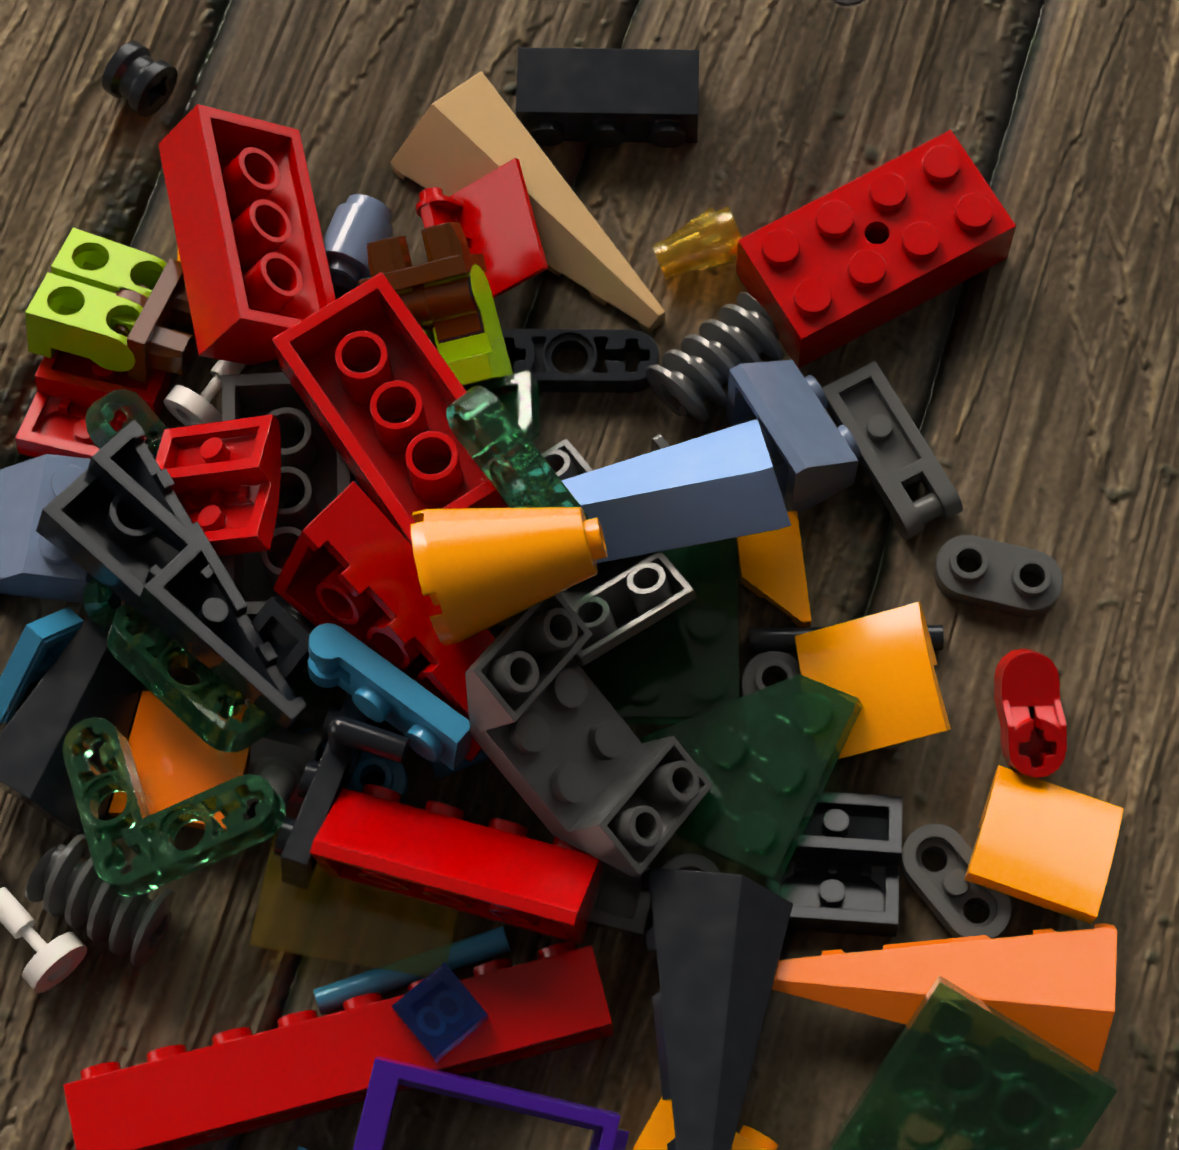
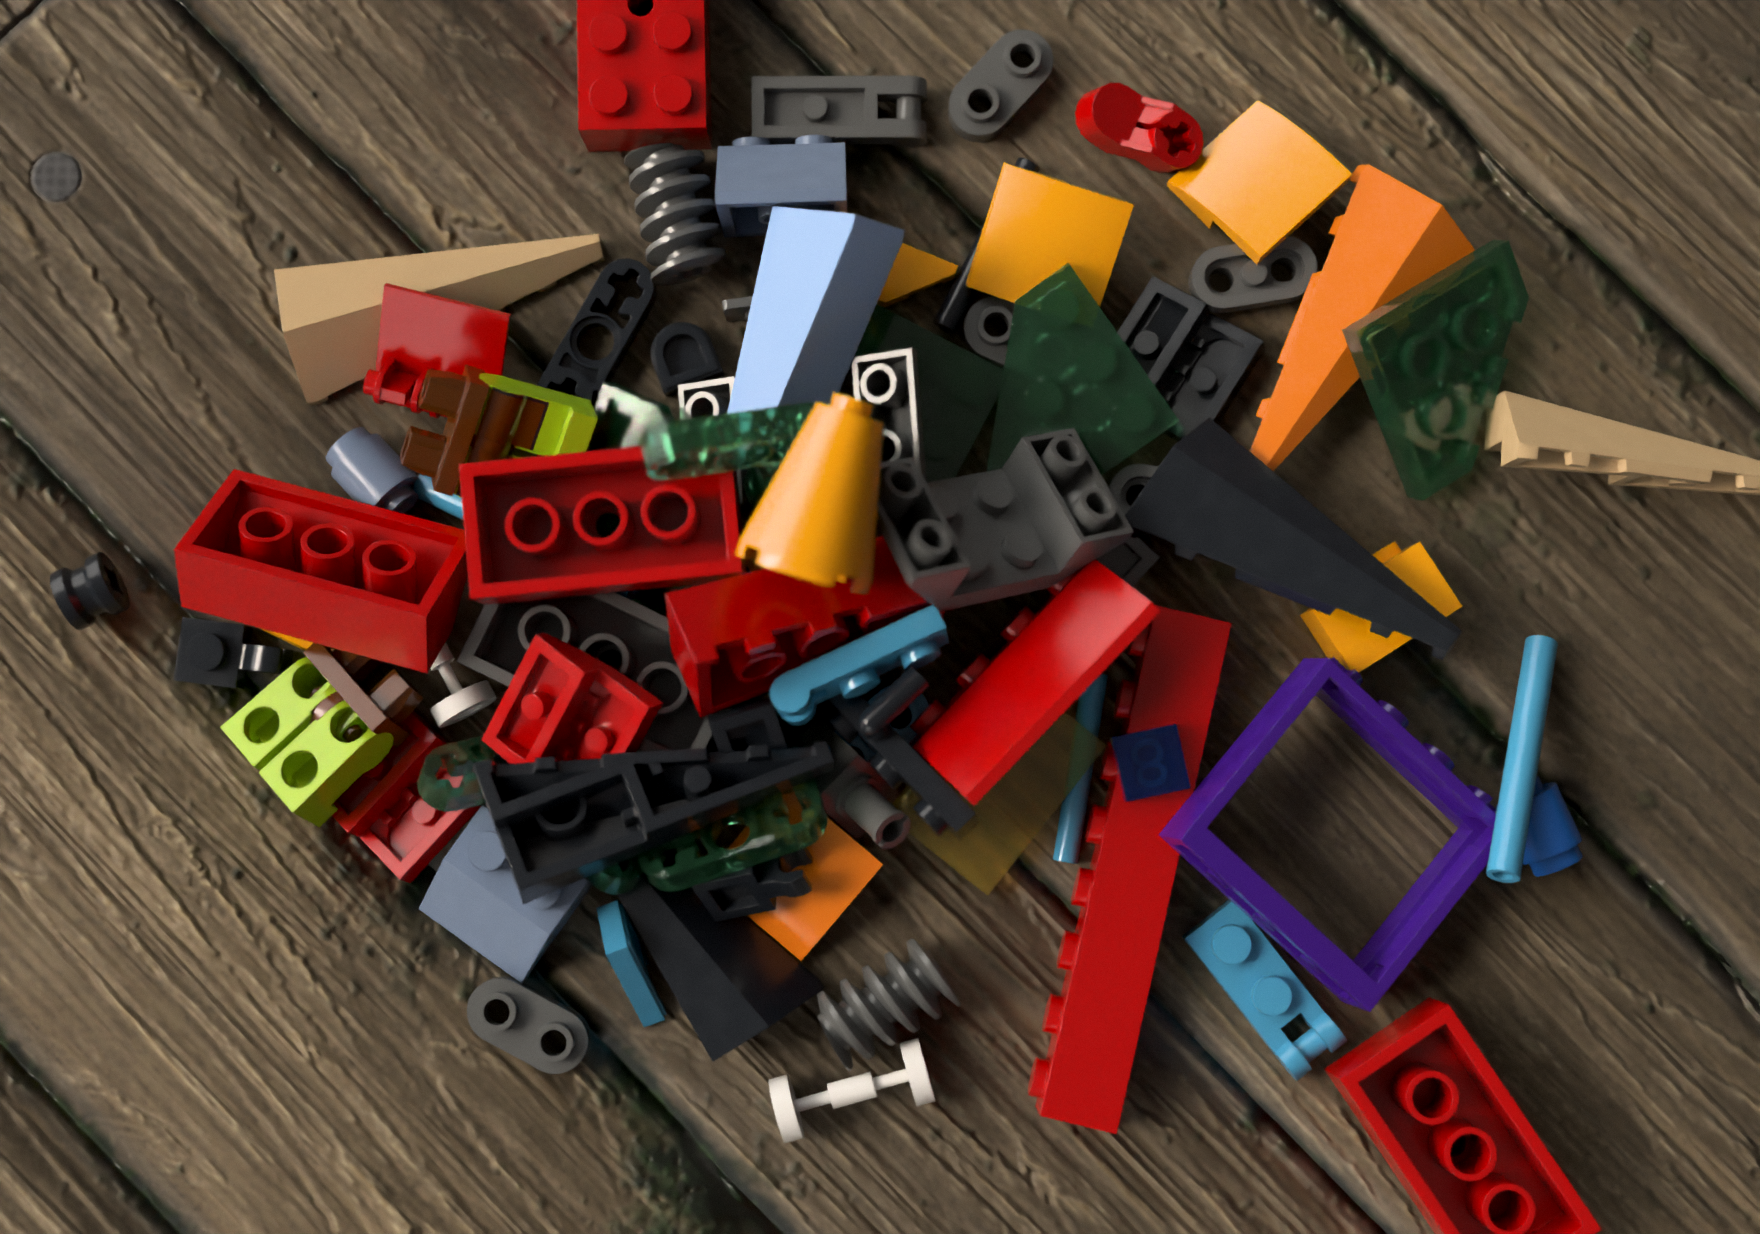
camera: 65 degrees left, 15 degrees up
(139, 206) = (223, 653): none -> black plate
(152, 725) = (755, 887): none -> black plate
(154, 834) = (869, 933): clear green beam -> none
(599, 435) = (683, 356): none -> black tile
(608, 95) = (356, 168): black brick -> none
(700, 244) = (550, 166): clear yellow cone -> none

